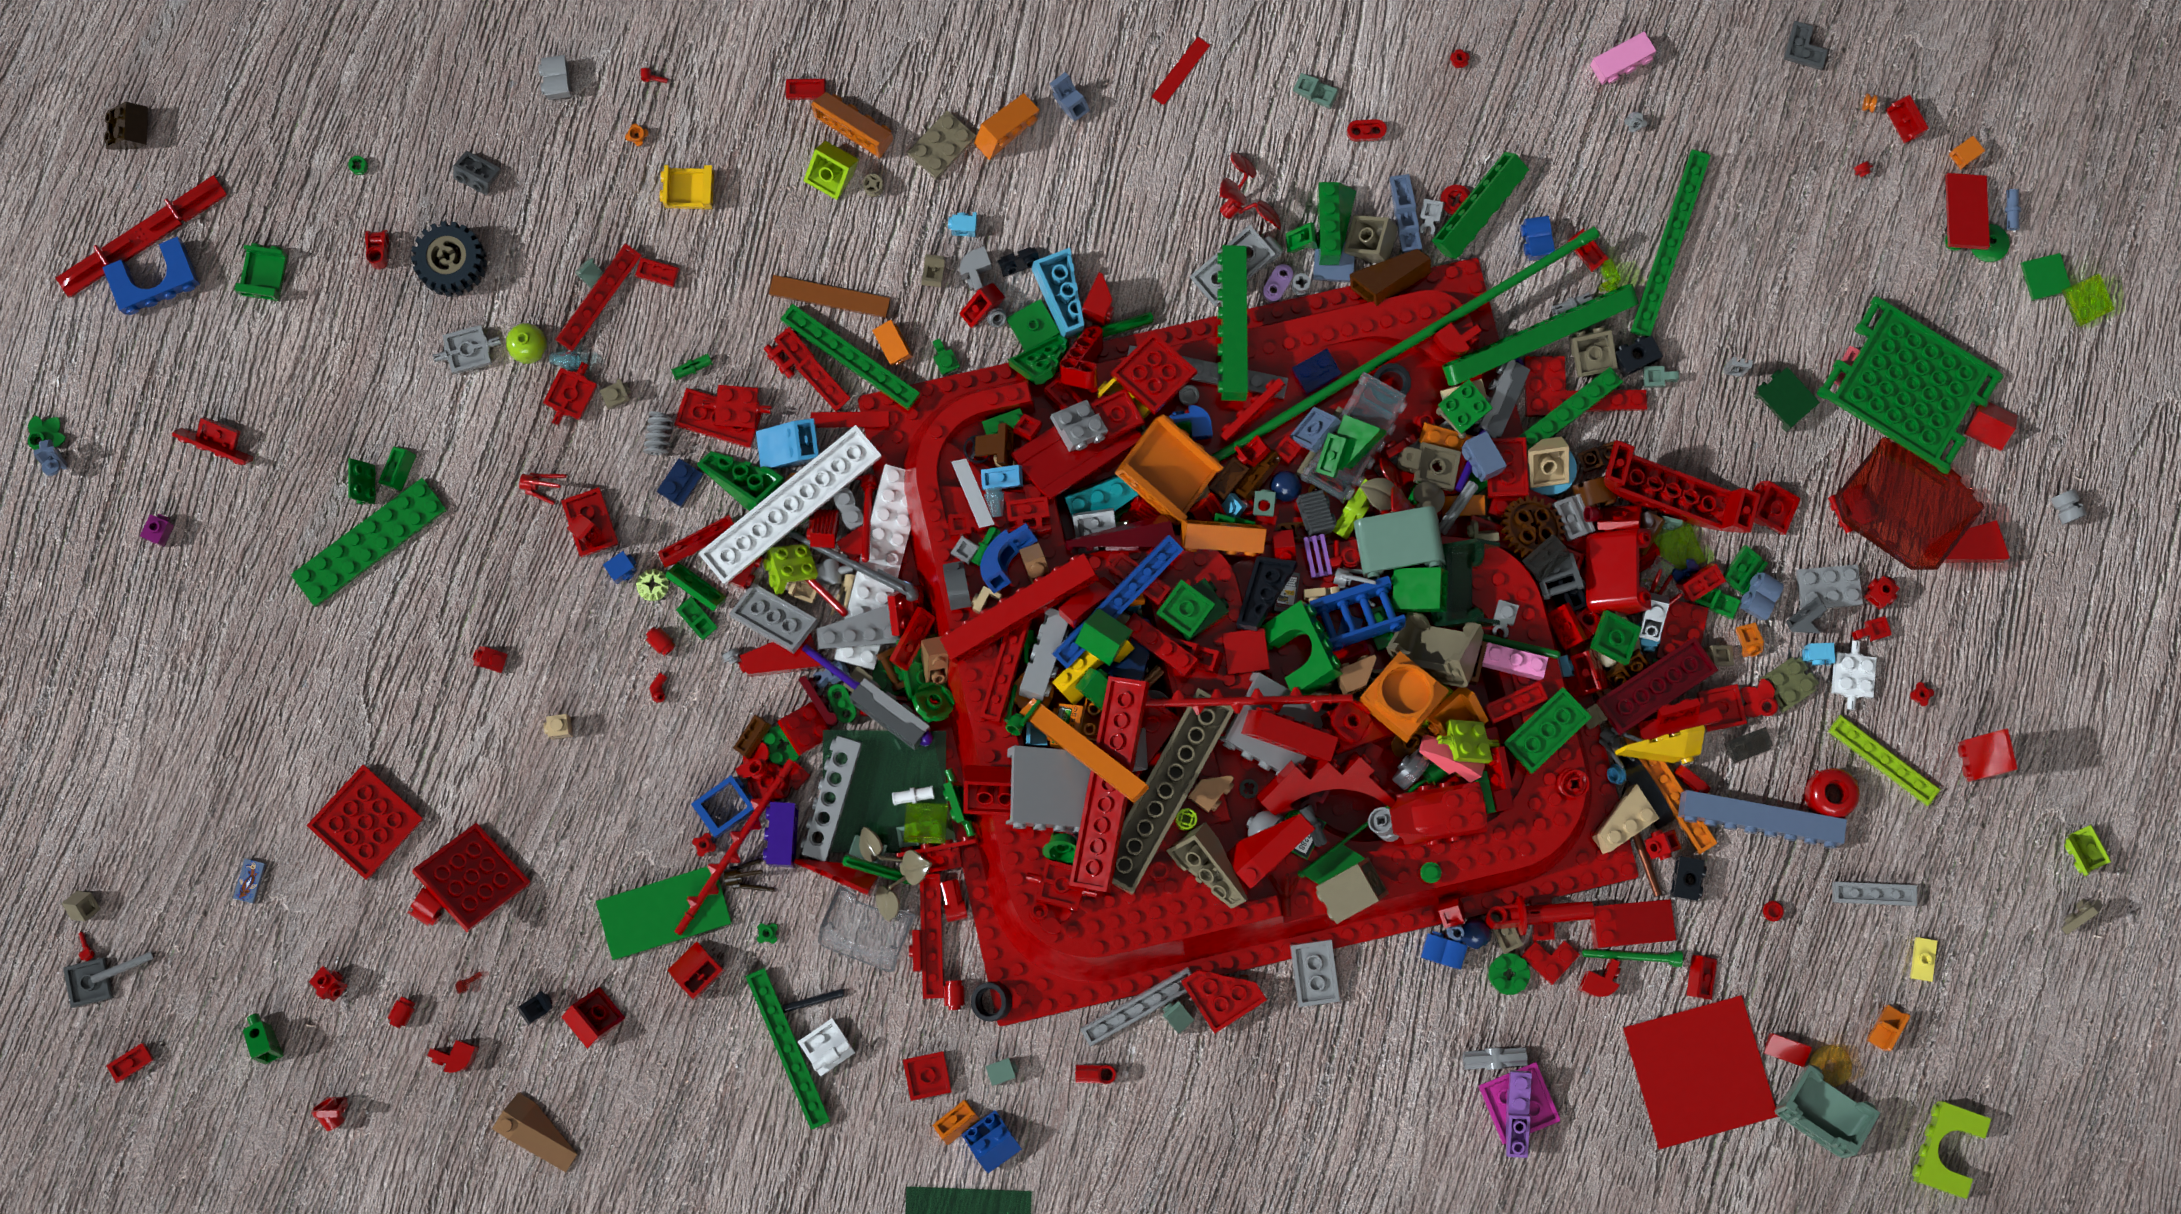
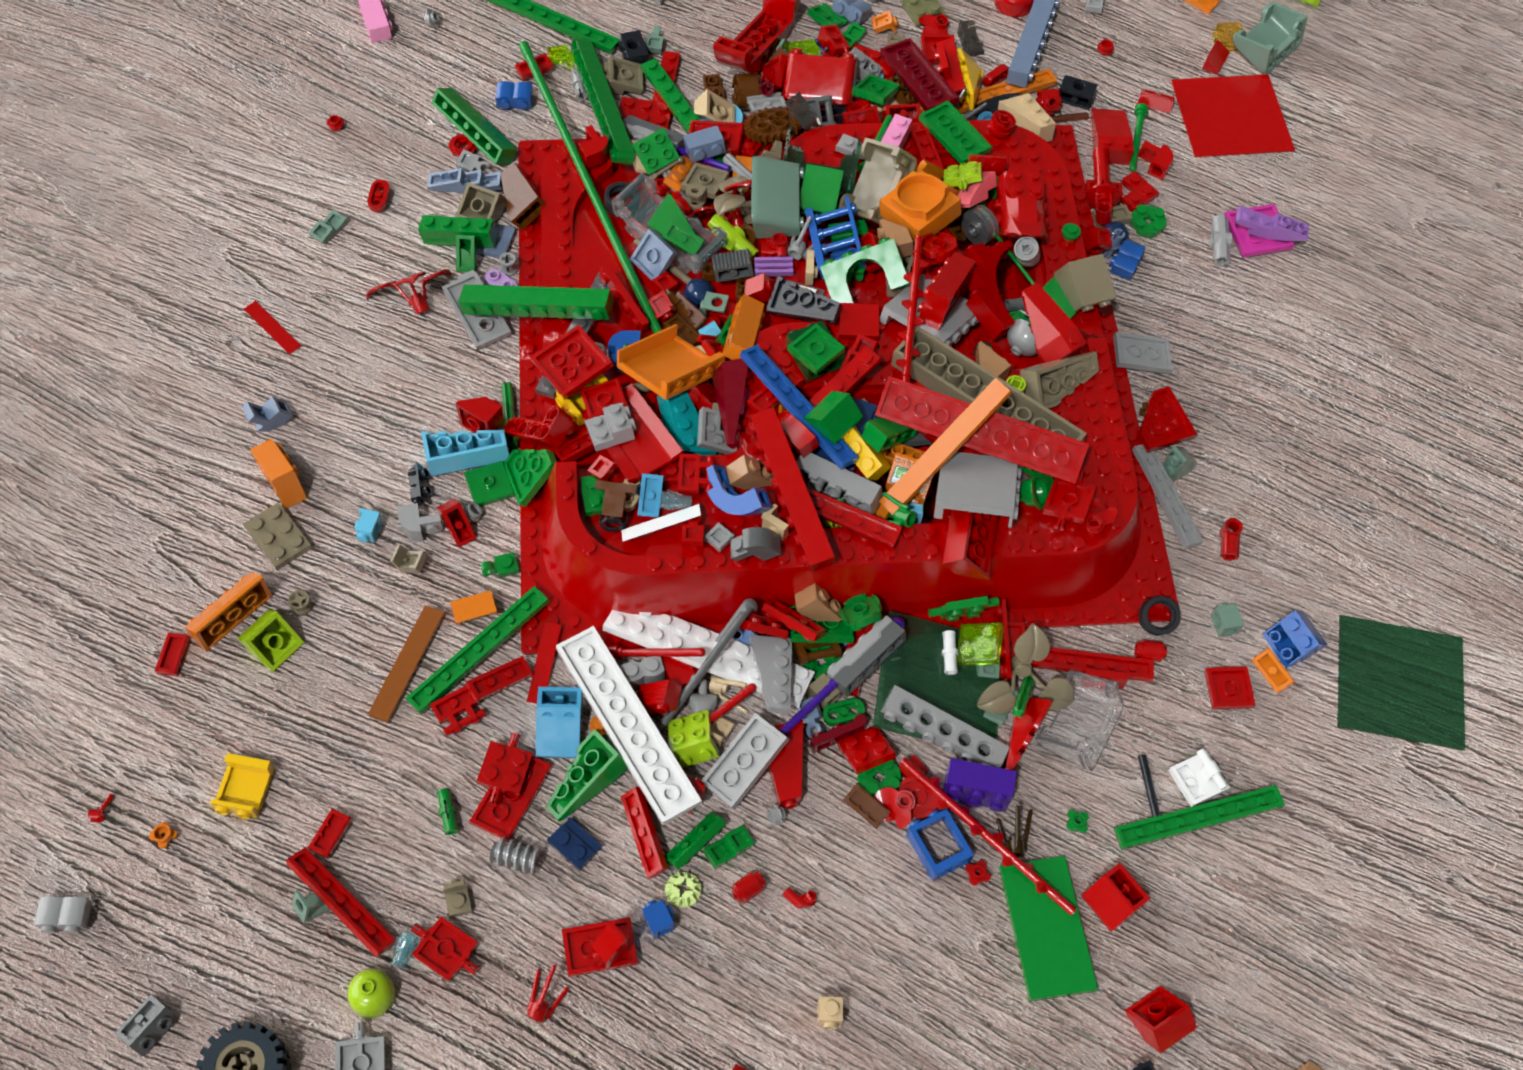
camera: 85 degrees left, 20 degrees down
(954, 905) = (1062, 636): red piece -> none
(990, 536) = (720, 516): green axle -> none
(1316, 371) = (596, 252): clear blue plate -> none

